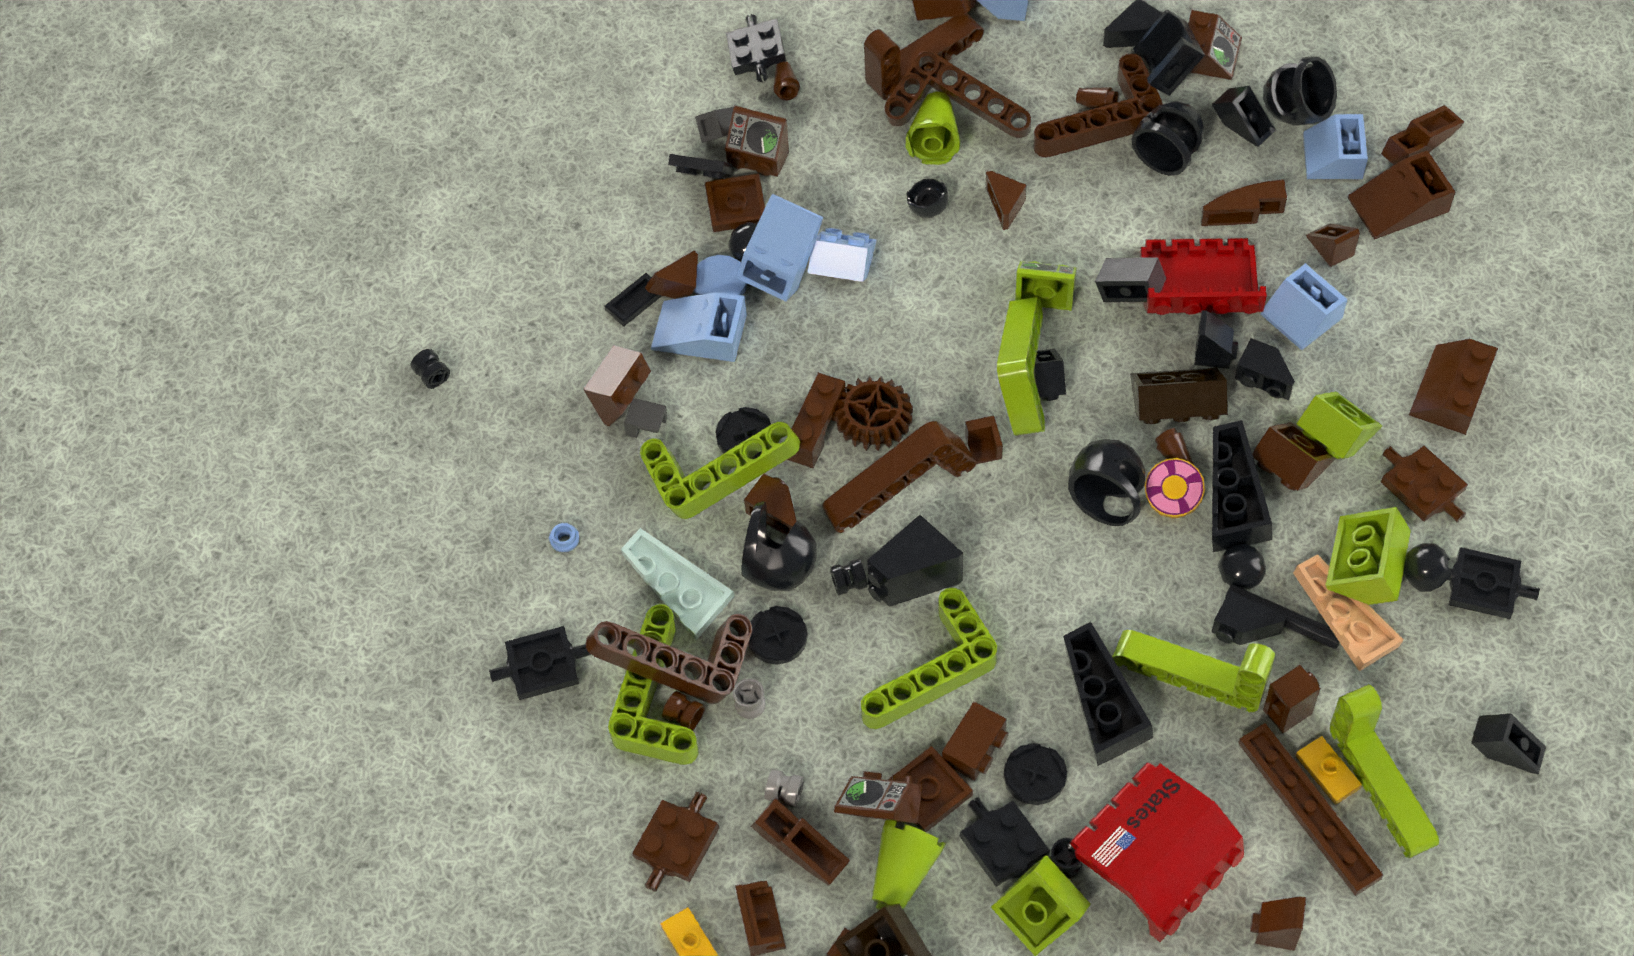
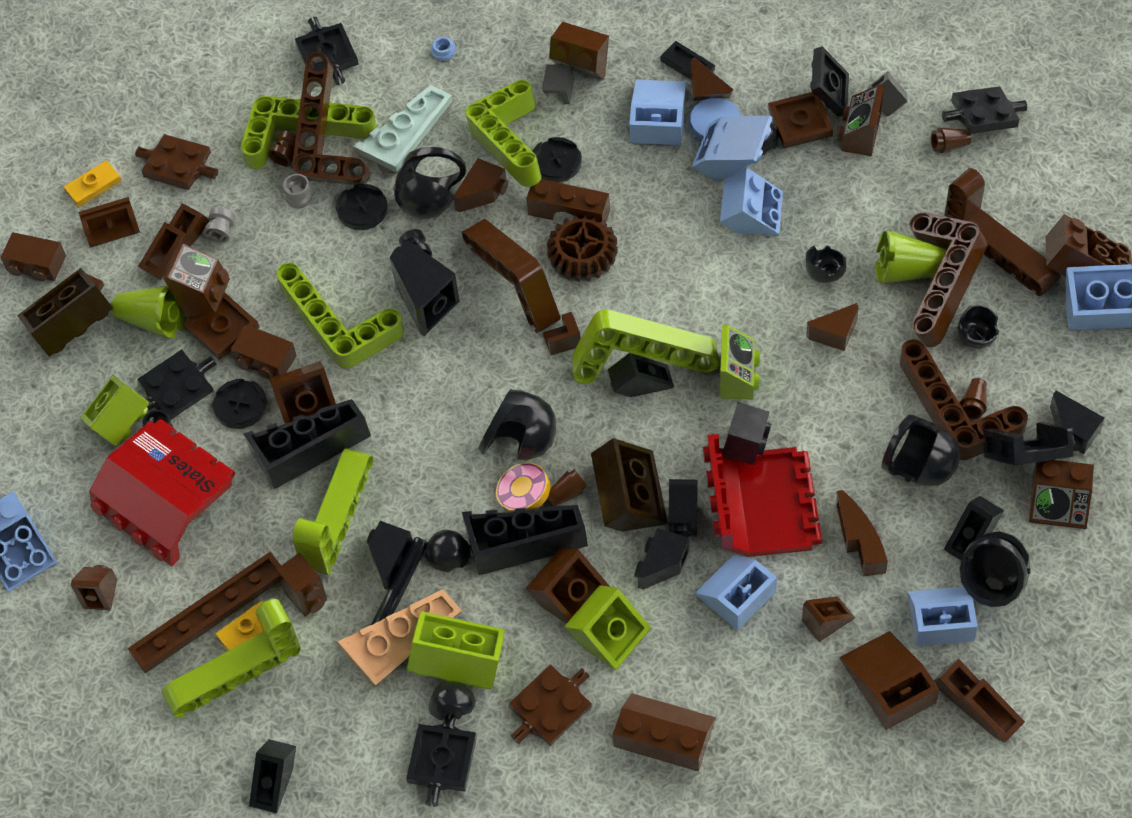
camera: 85 degrees right, 0 degrees up
(1014, 80) = (979, 320): none -> black hair
(1037, 699) = (302, 391): none -> reddish brown slope

